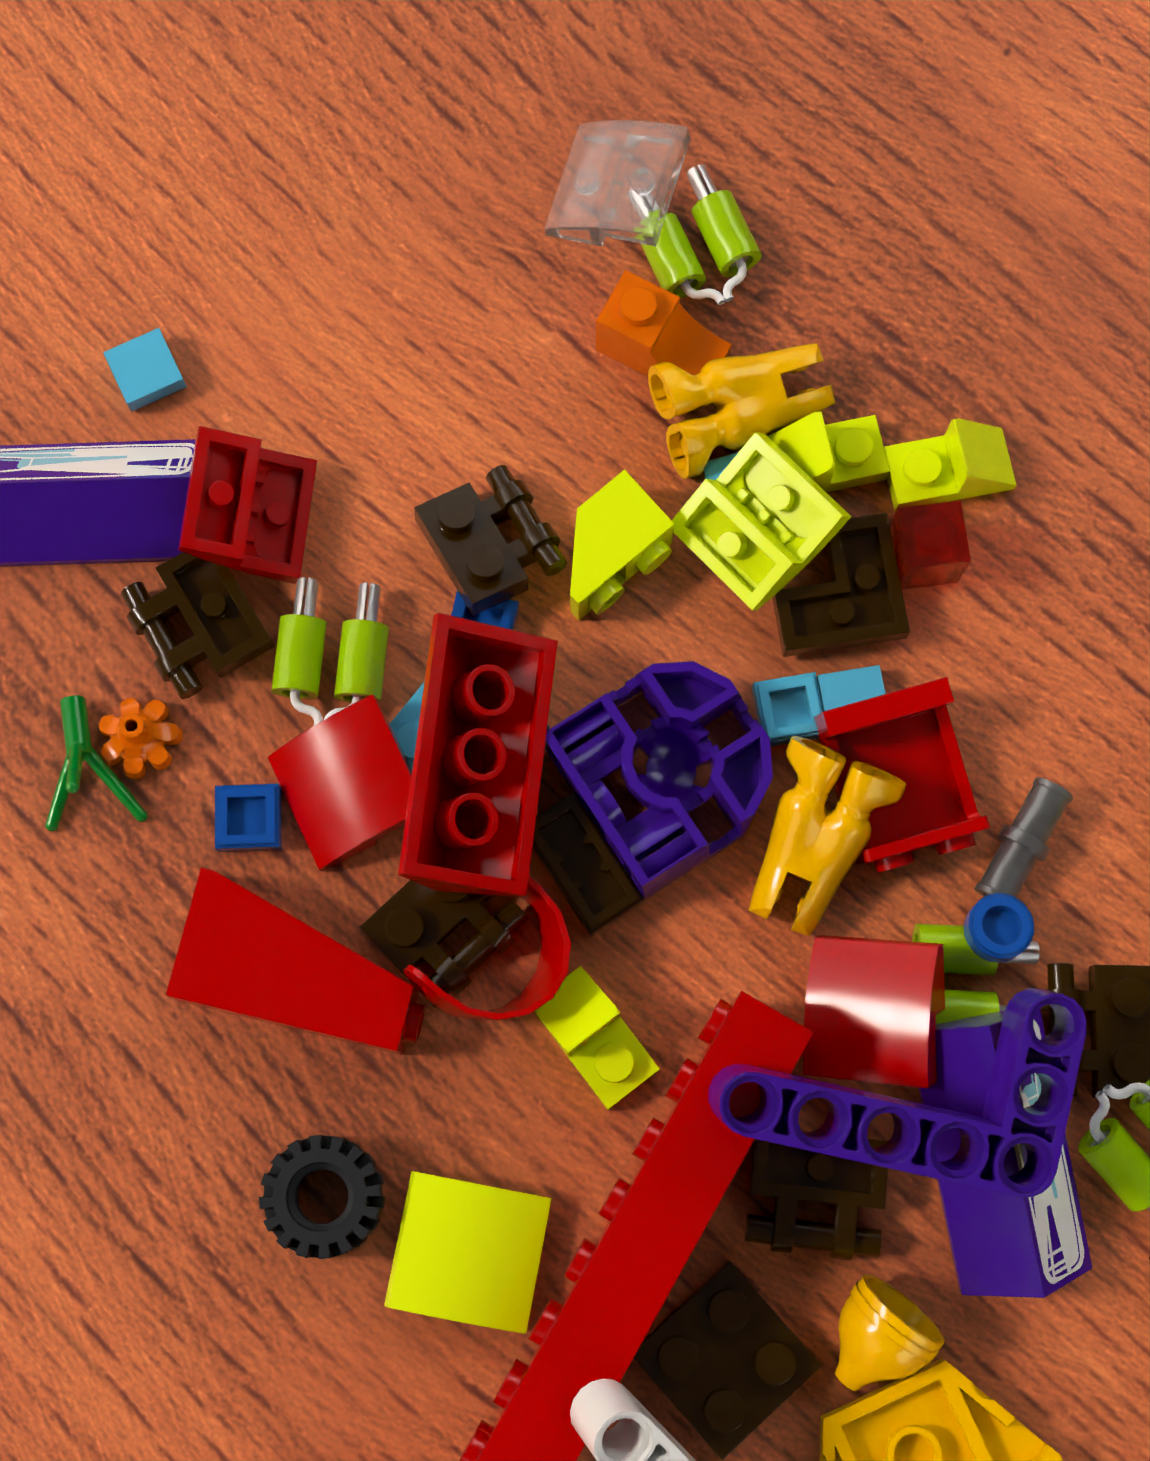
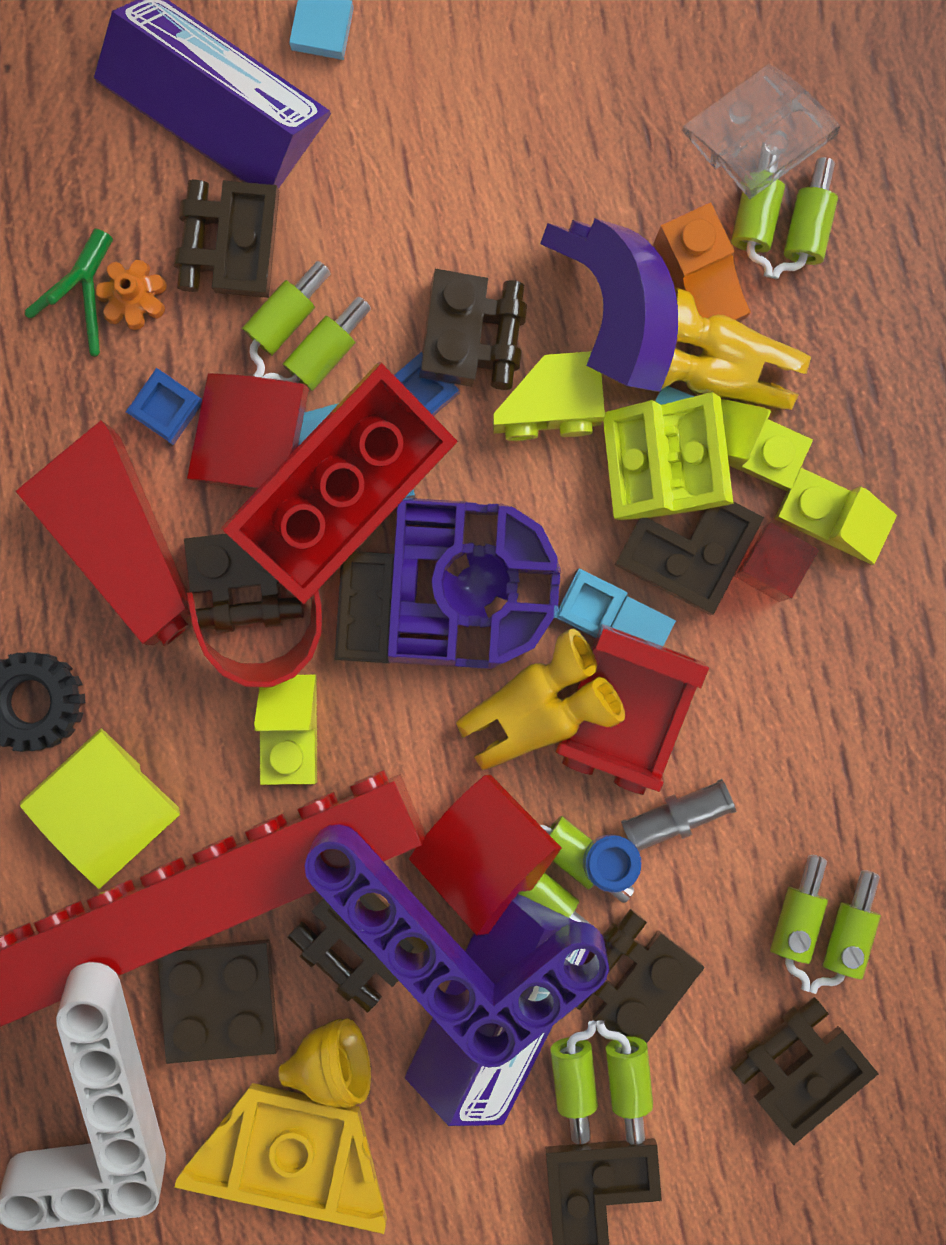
camera: 40 degrees right, 10 degrees up
(247, 505) = (317, 181): red slope -> none
(626, 394) = (638, 300): none -> dark purple arch

